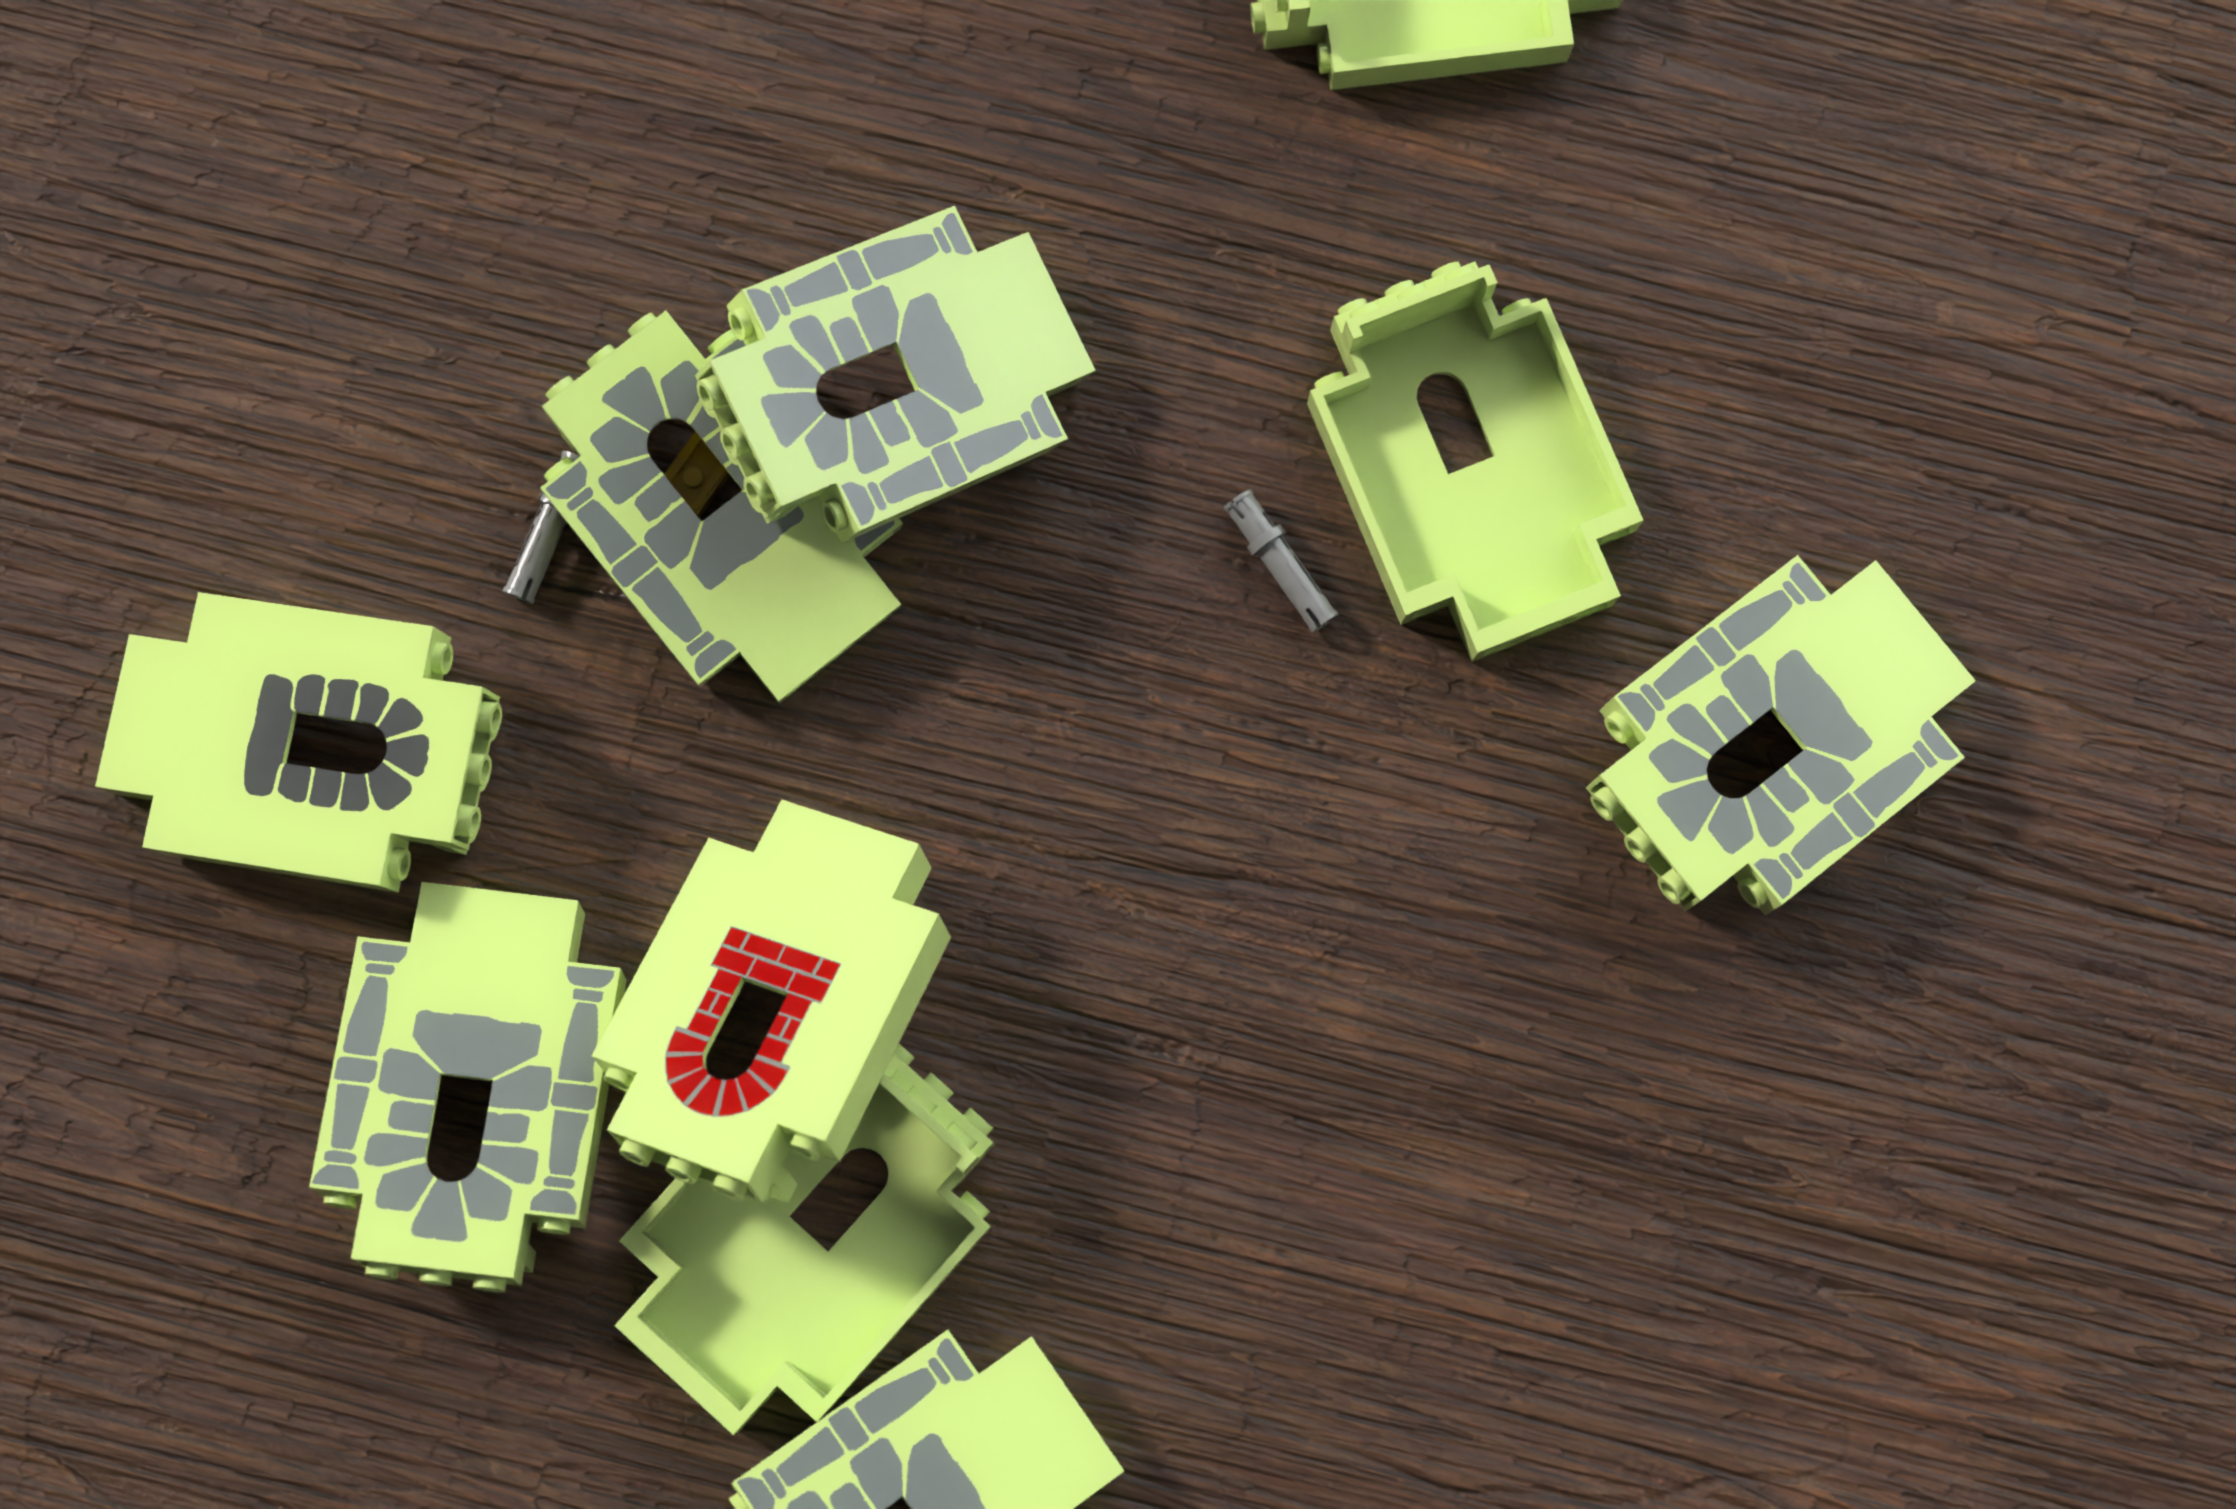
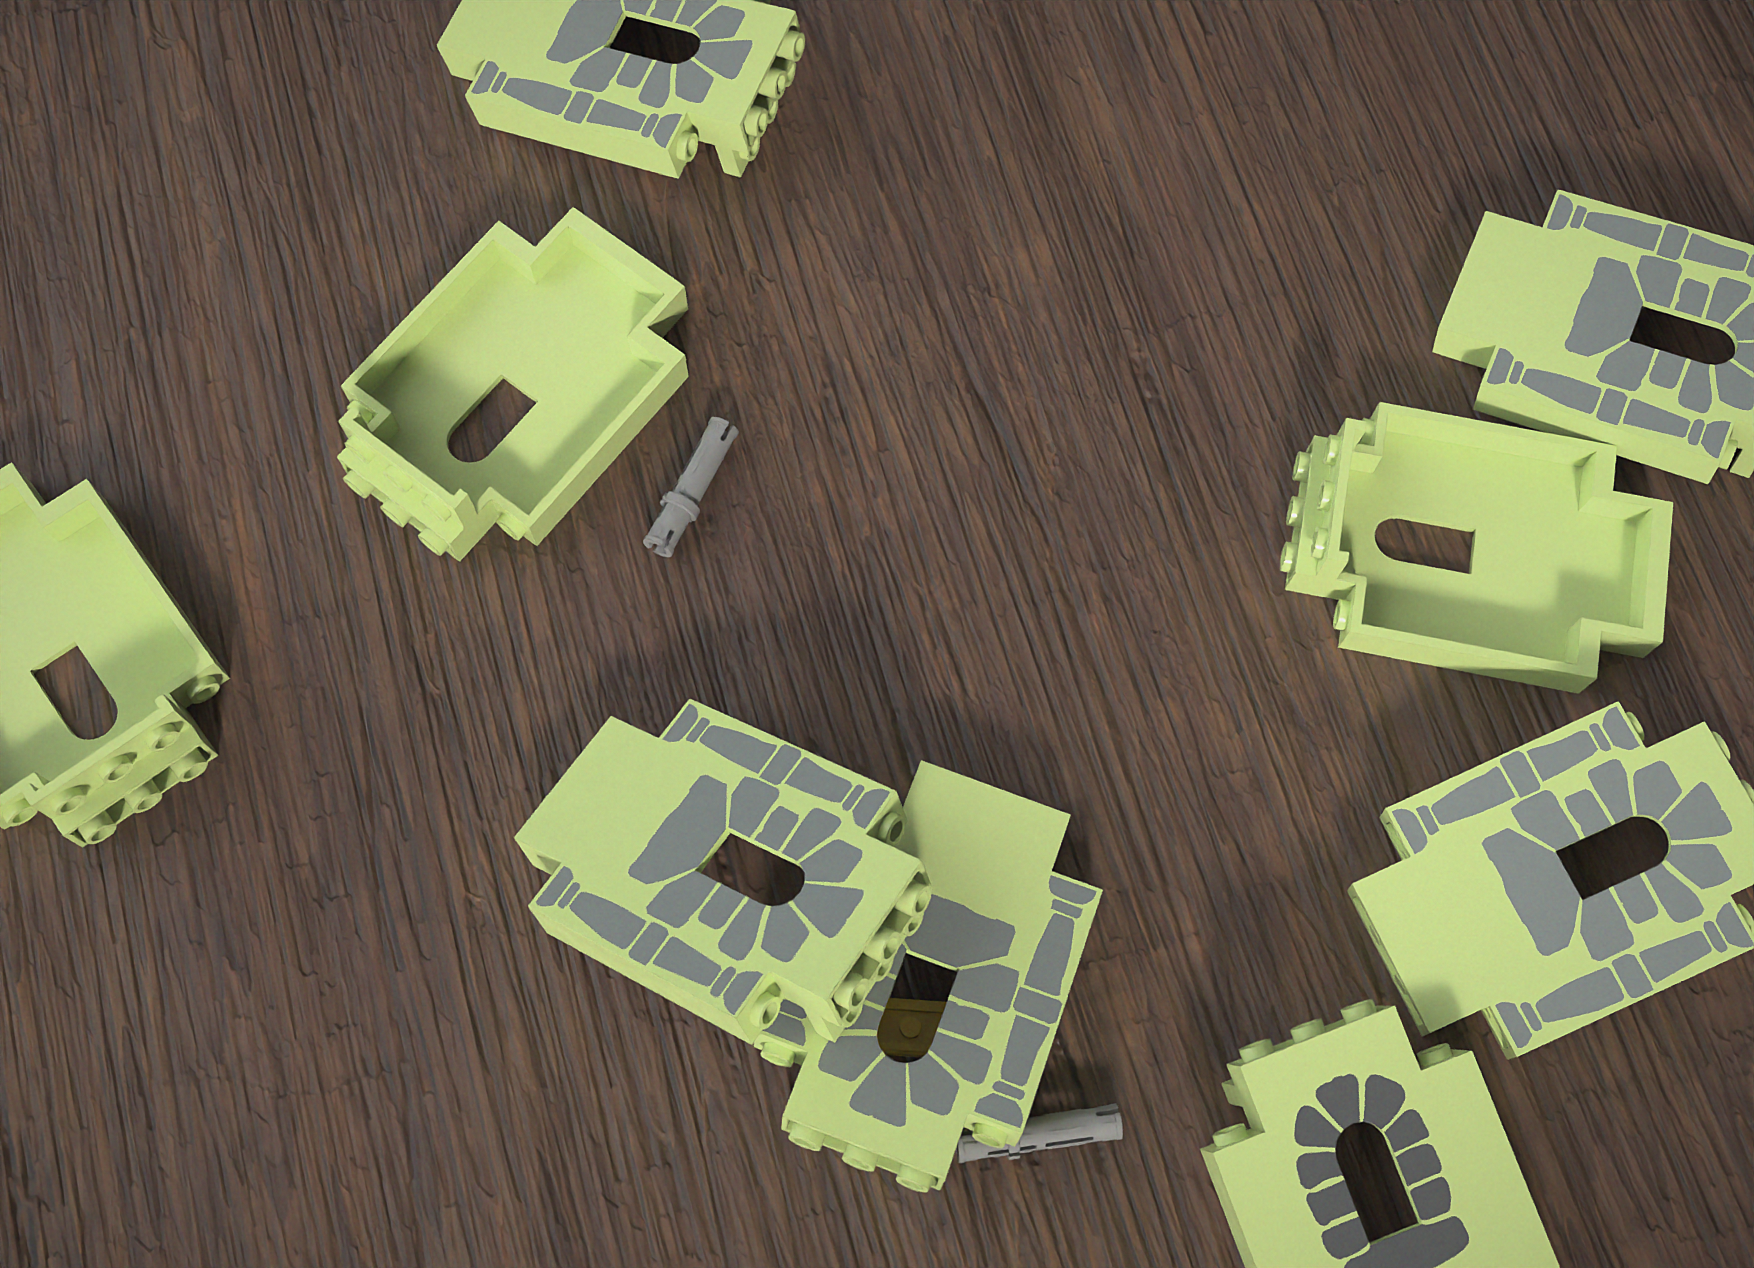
camera: 120 degrees left, 10 degrees down
(806, 915) = (1252, 668): yellowish green panel -> none

